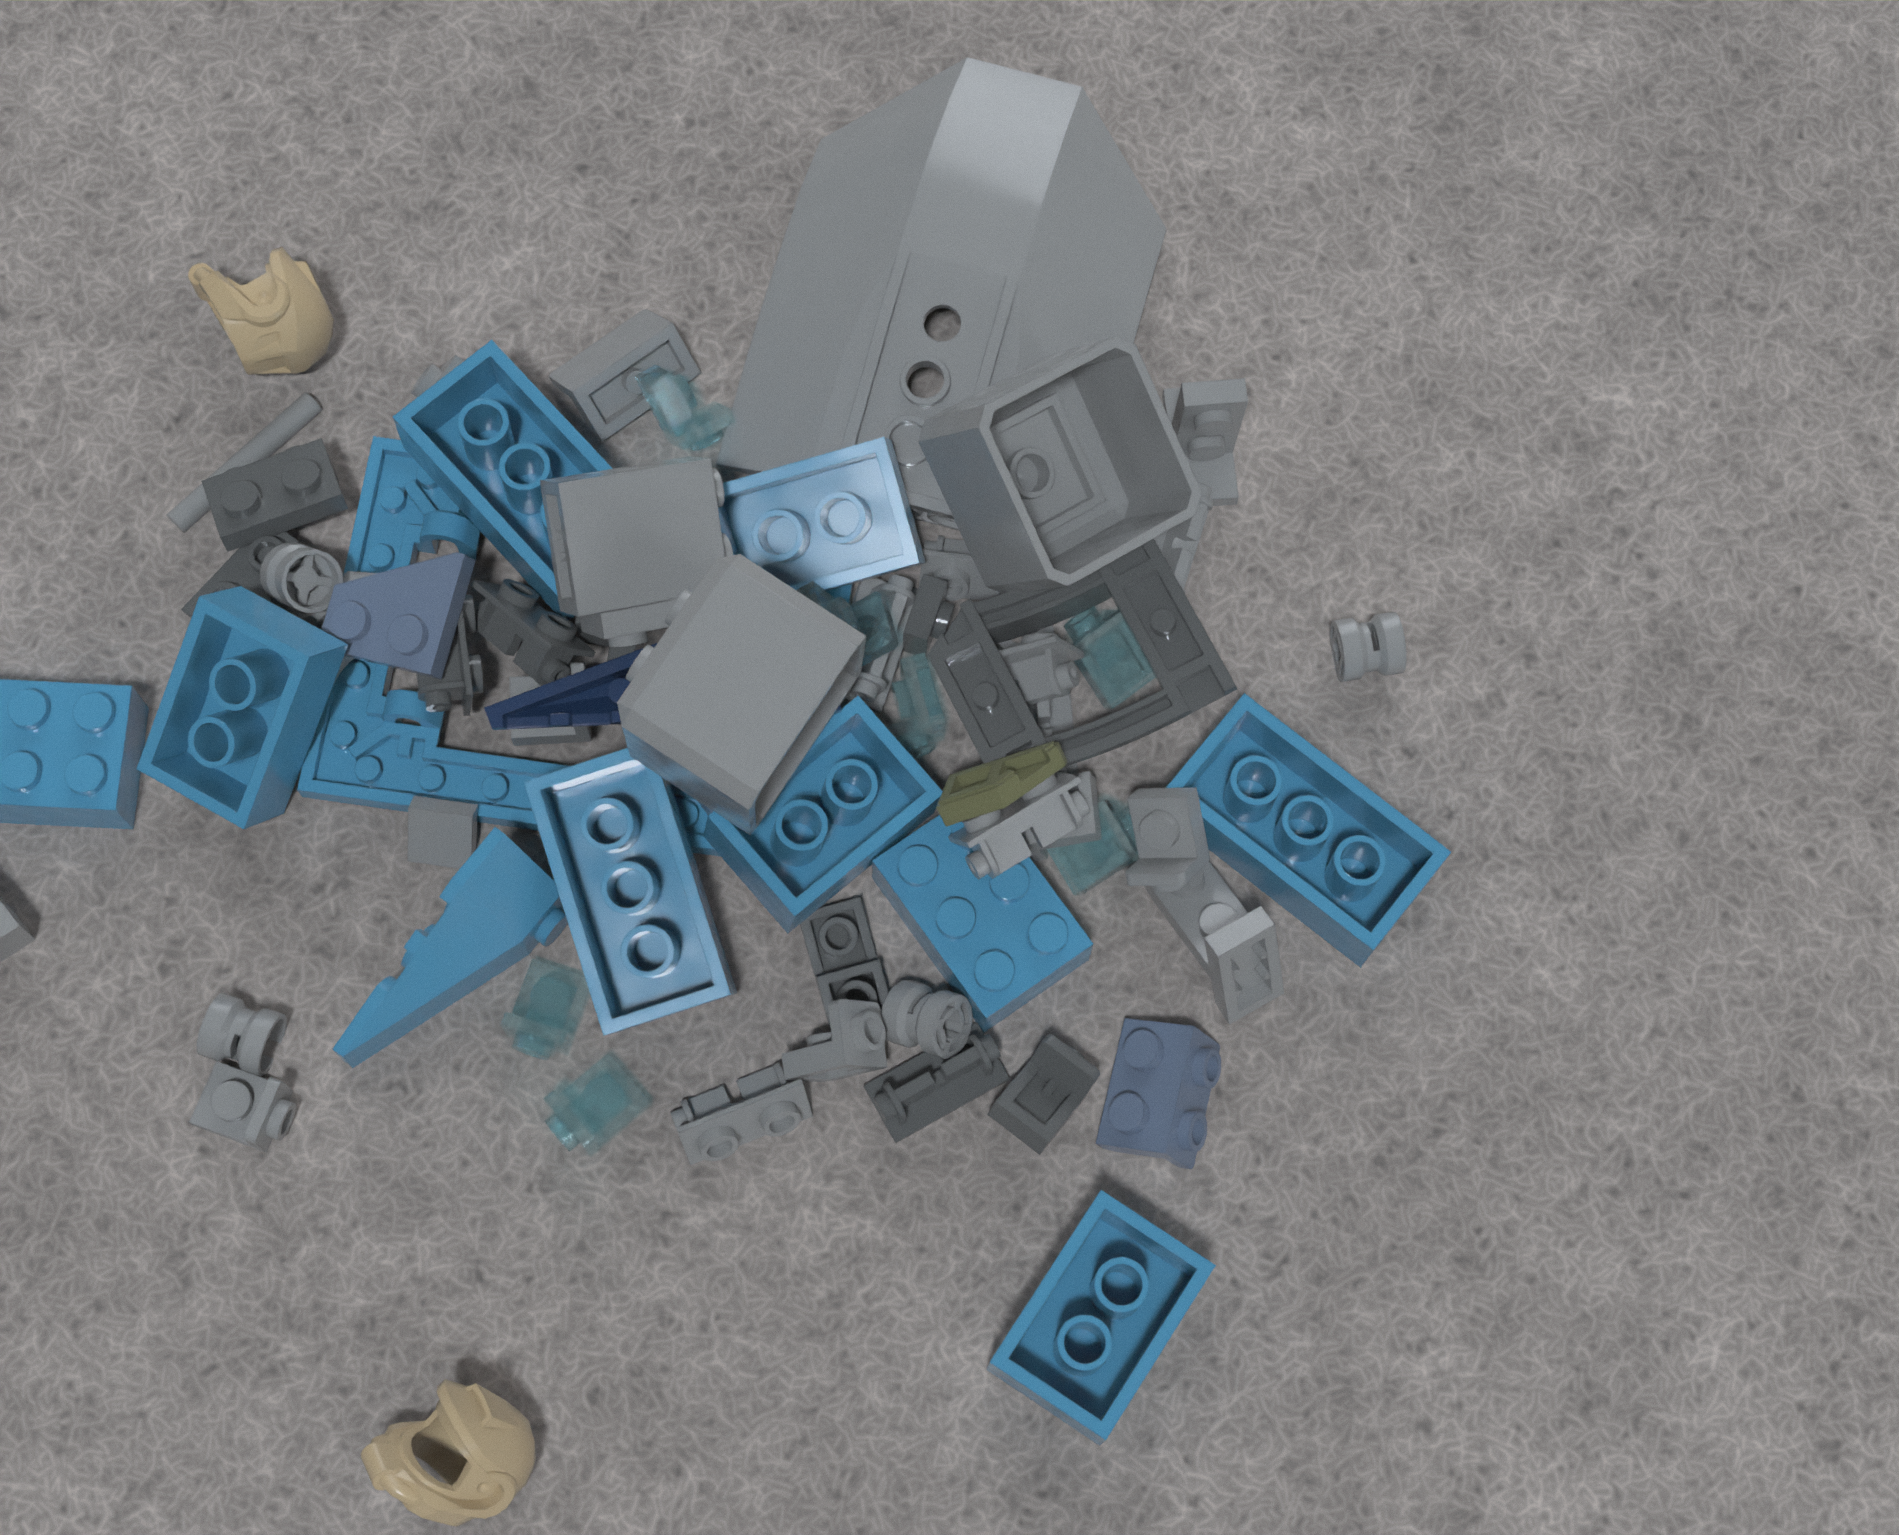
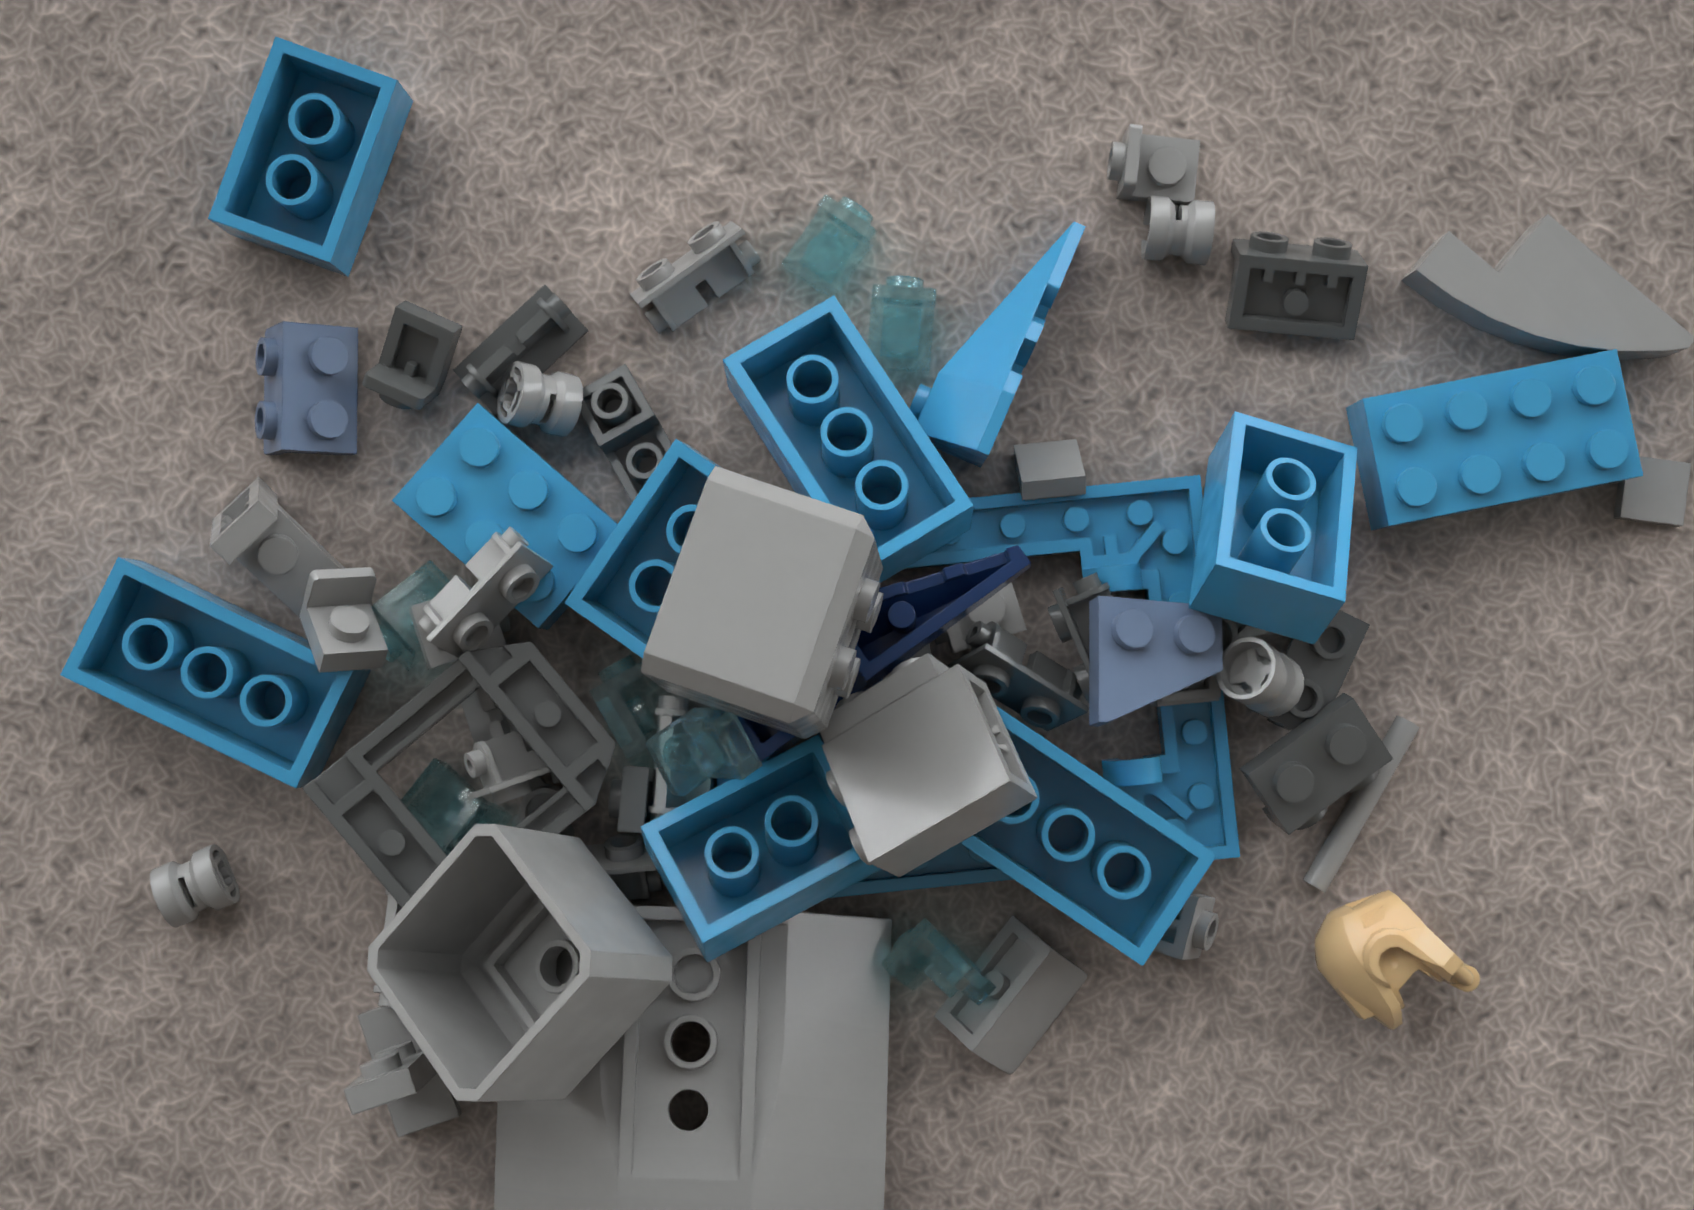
camera: 170 degrees right, 15 degrees up
(142, 952) = (1296, 286): none -> dark grey bracket
(849, 1050) = (608, 344): light grey bracket -> none
(997, 782) = (511, 617): olive tile -> none

